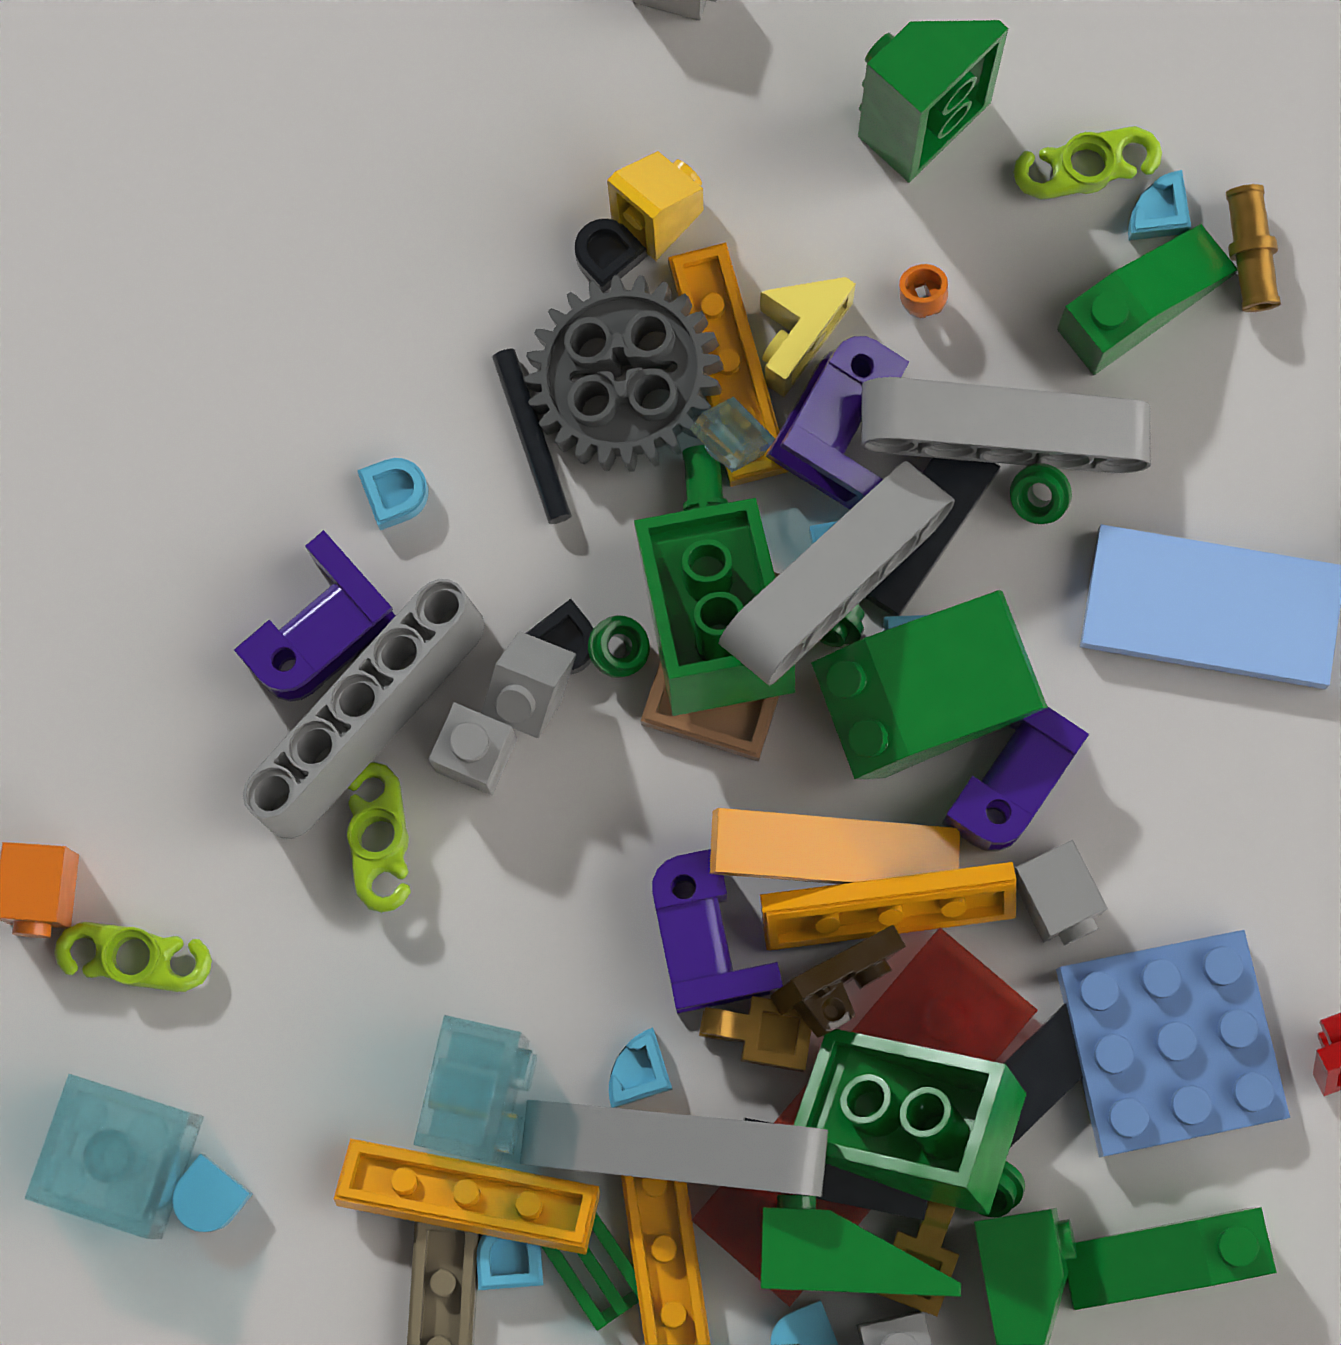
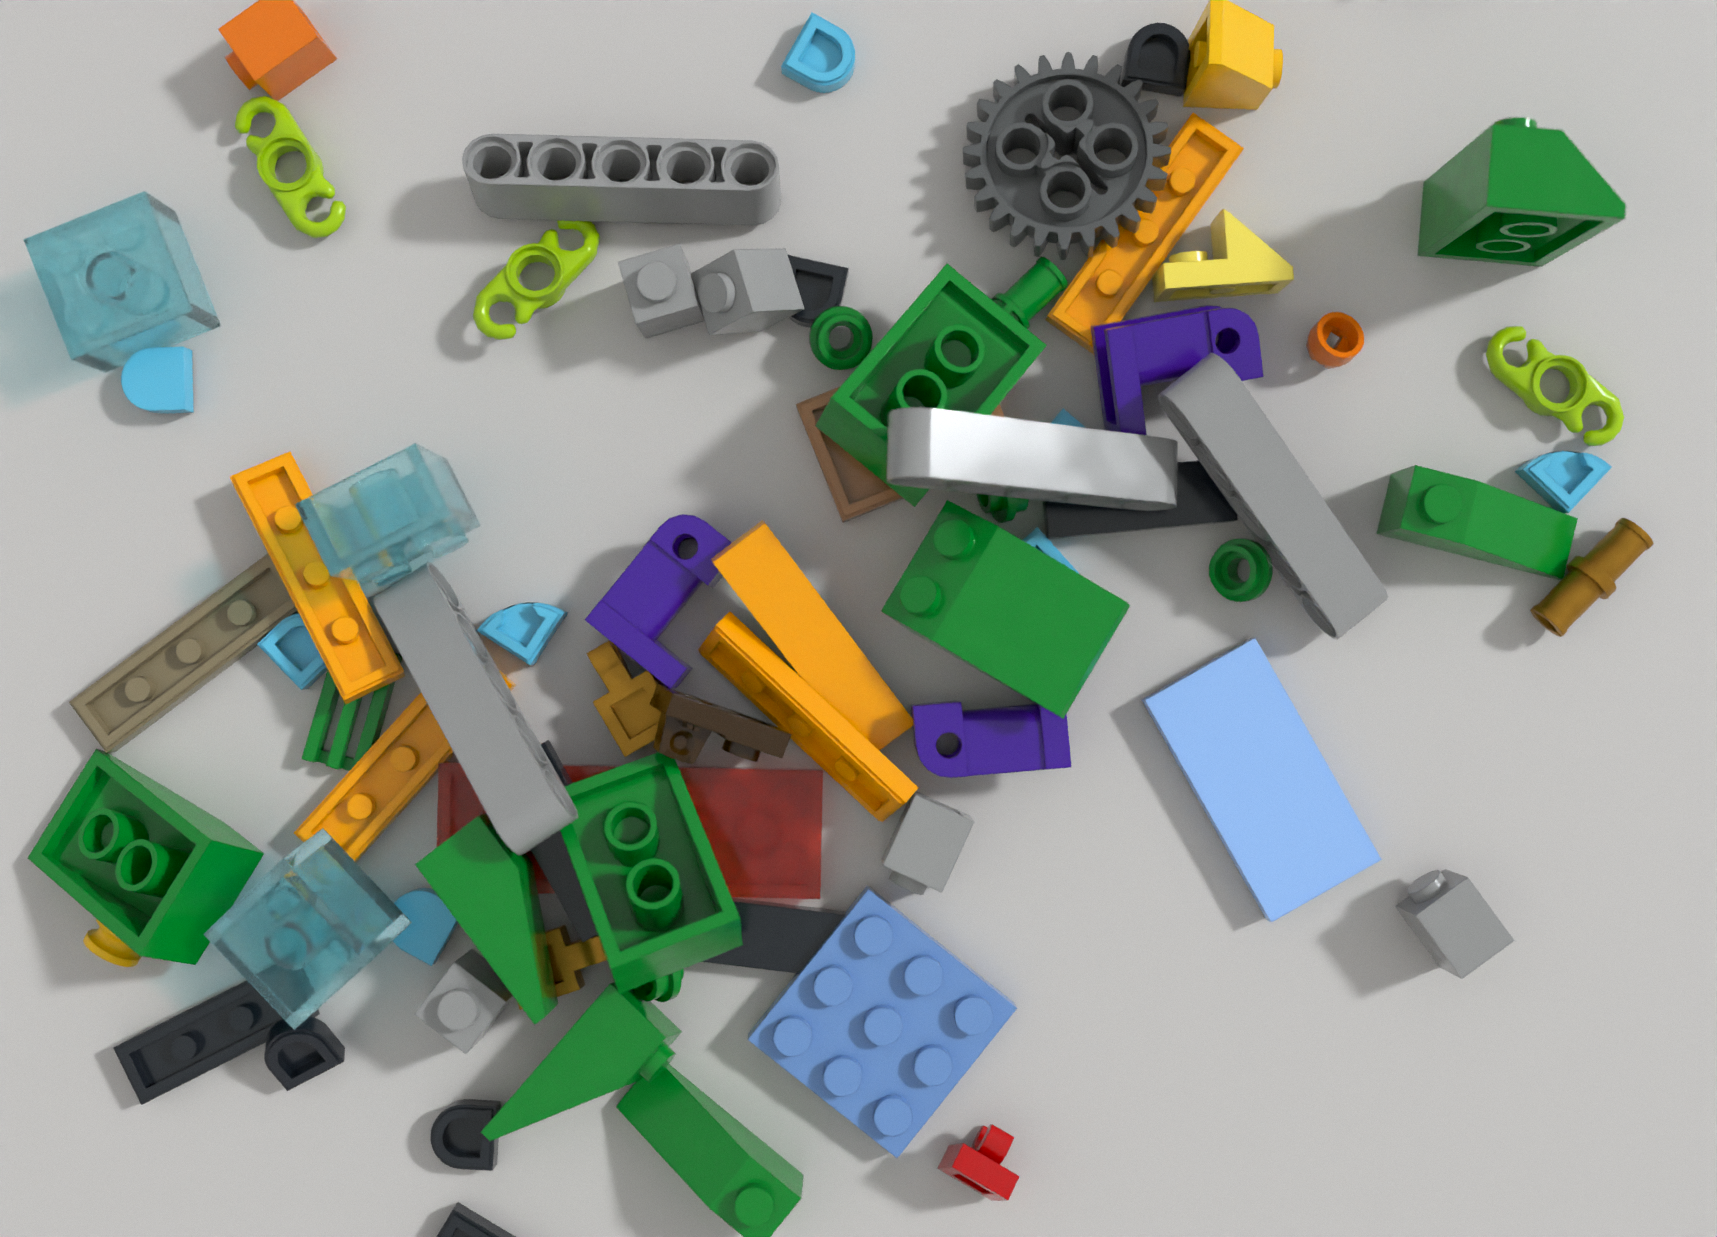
camera: 40 degrees right, 10 degrees up
(323, 633) = (657, 96): dark purple piece -> none
(531, 436) = (954, 127): black bar -> none
(732, 434) = (1084, 283): clear light blue plate -> none

